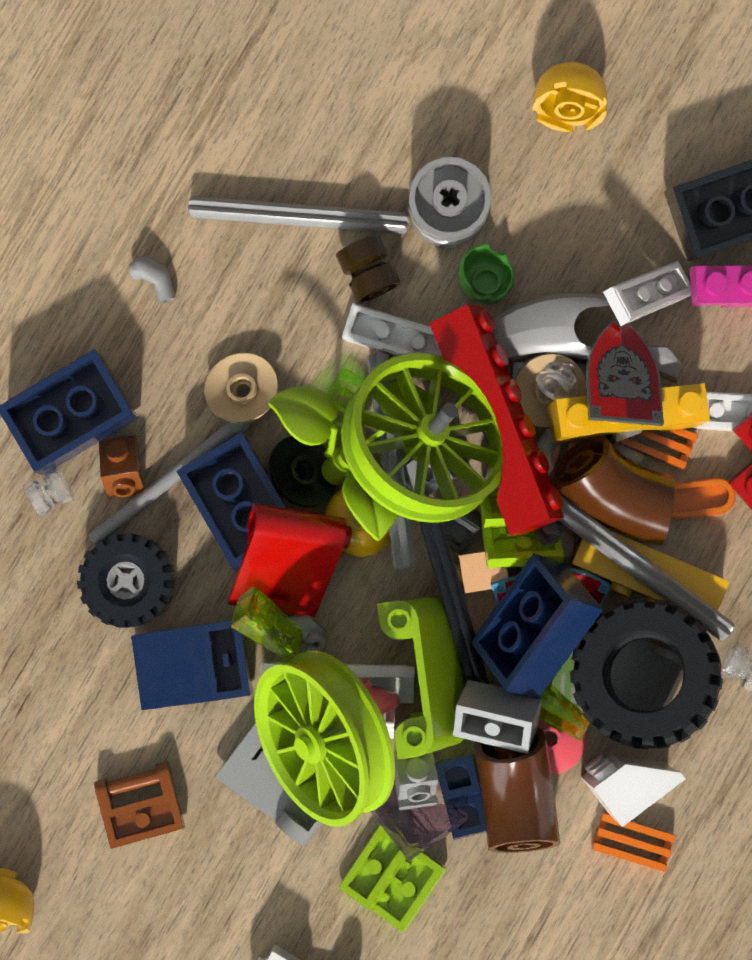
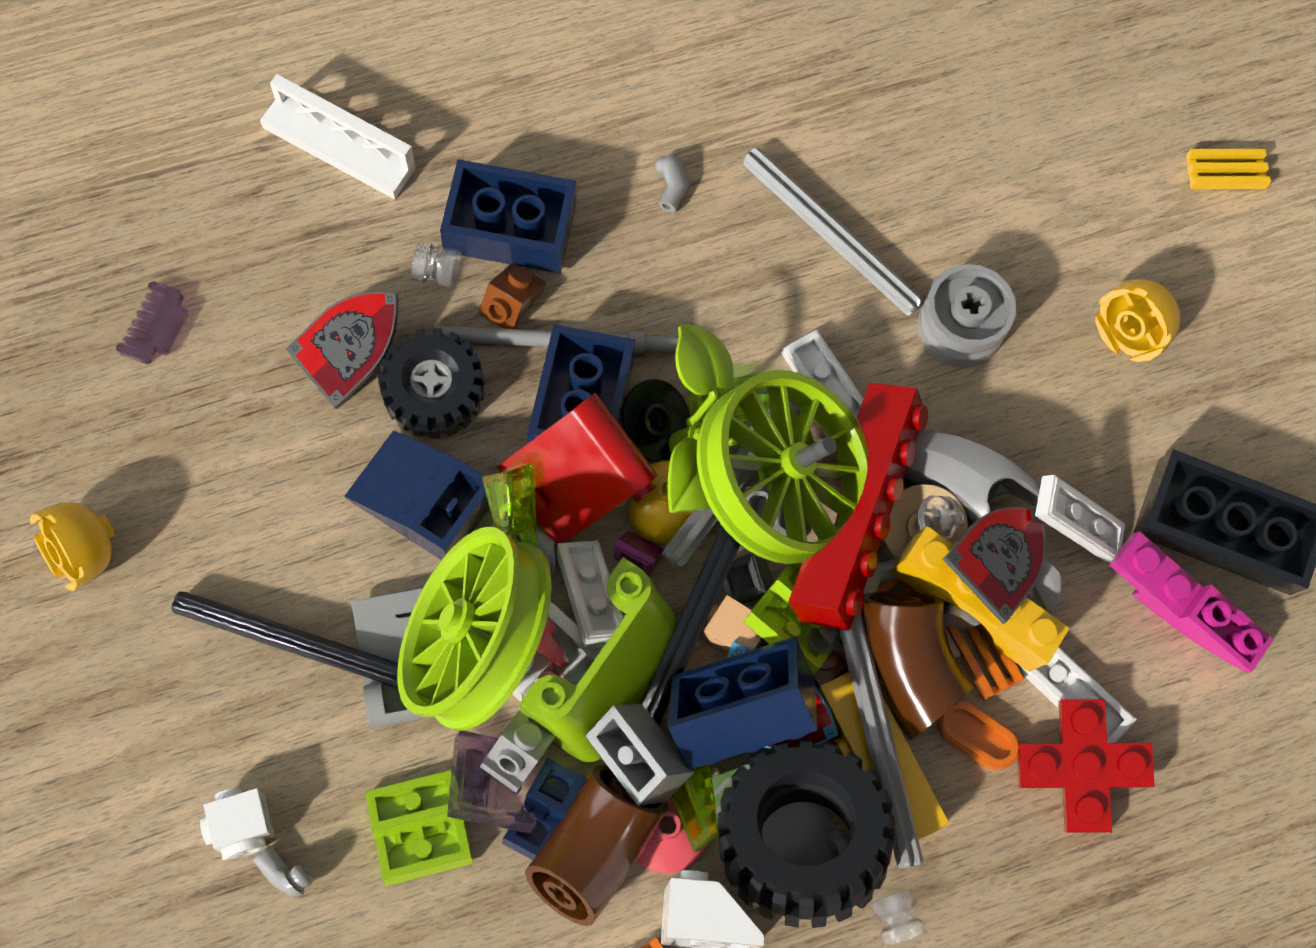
camera: 30 degrees right, 15 degrees down
(42, 604) = (347, 343): none -> shield
(143, 817) = (261, 583): dark orange plate -> none
(195, 838) = (286, 638): none -> black axle
(233, 375) = (659, 309): tan dish -> none
(363, 631) = (586, 585): none -> white tile
(367, 267) = (853, 311): dark brown wheel -> none
(370, 571) = (638, 551): none -> magenta slope
(485, 275) = (949, 395): bright green hair -> none

